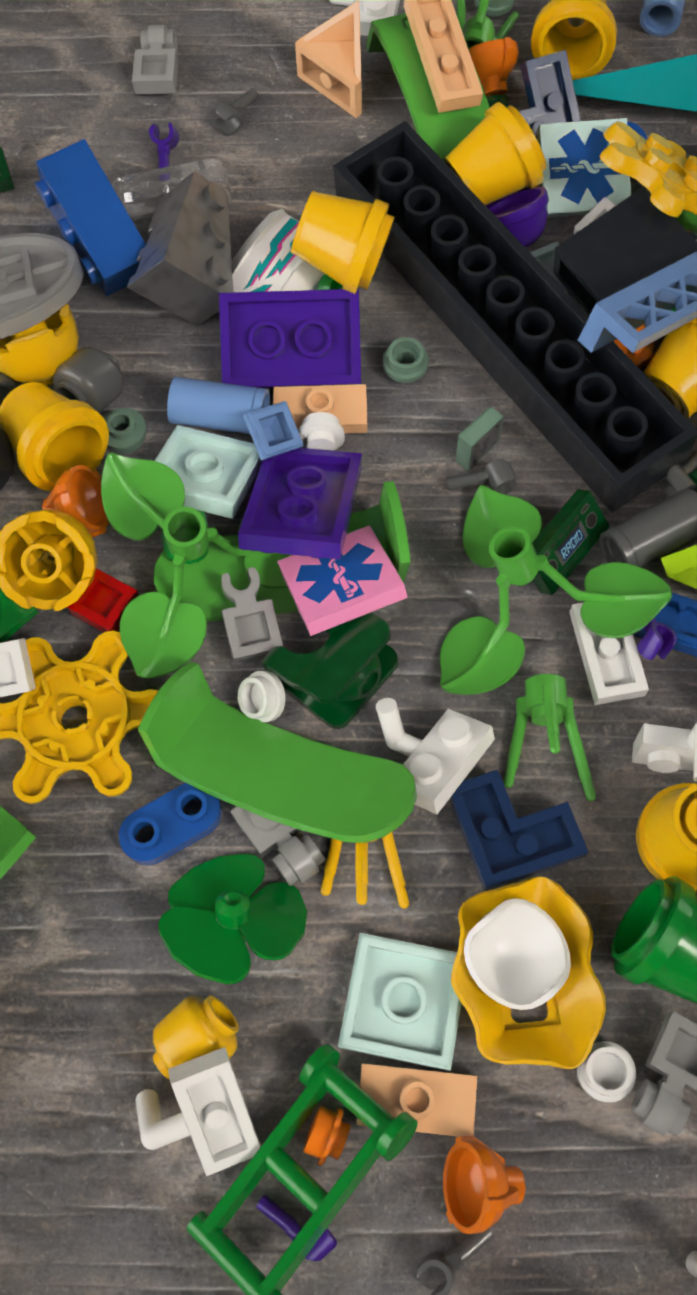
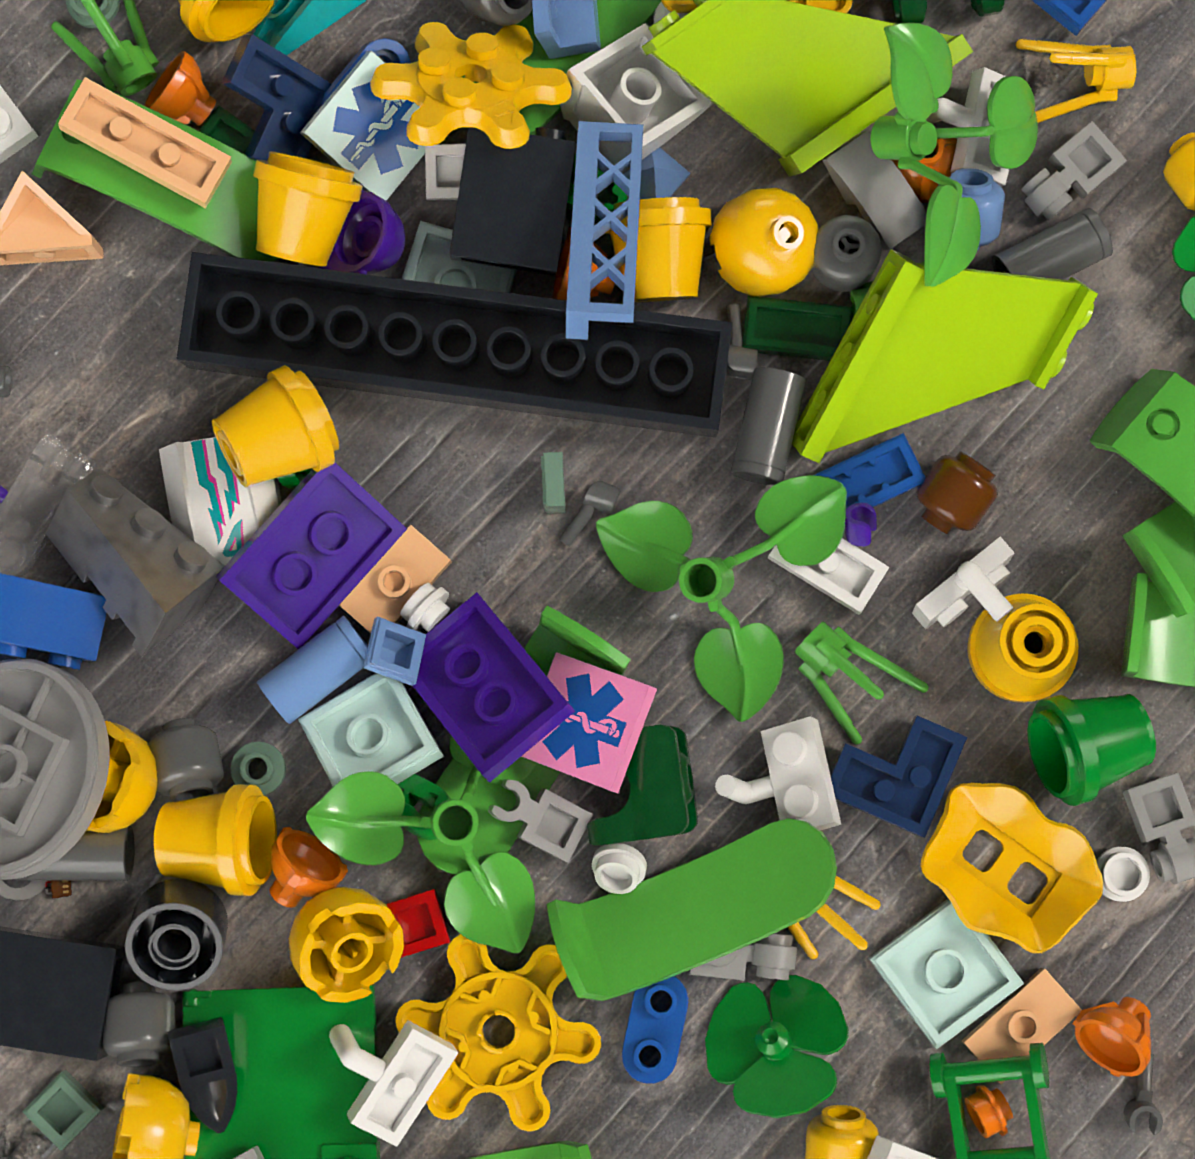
camera: 50 degrees left, 15 degrees up
(405, 350) = (405, 456): sand green plate -> none
(518, 955) = (997, 864): white helmet -> none
(569, 537) = (709, 504): dark green tile -> none

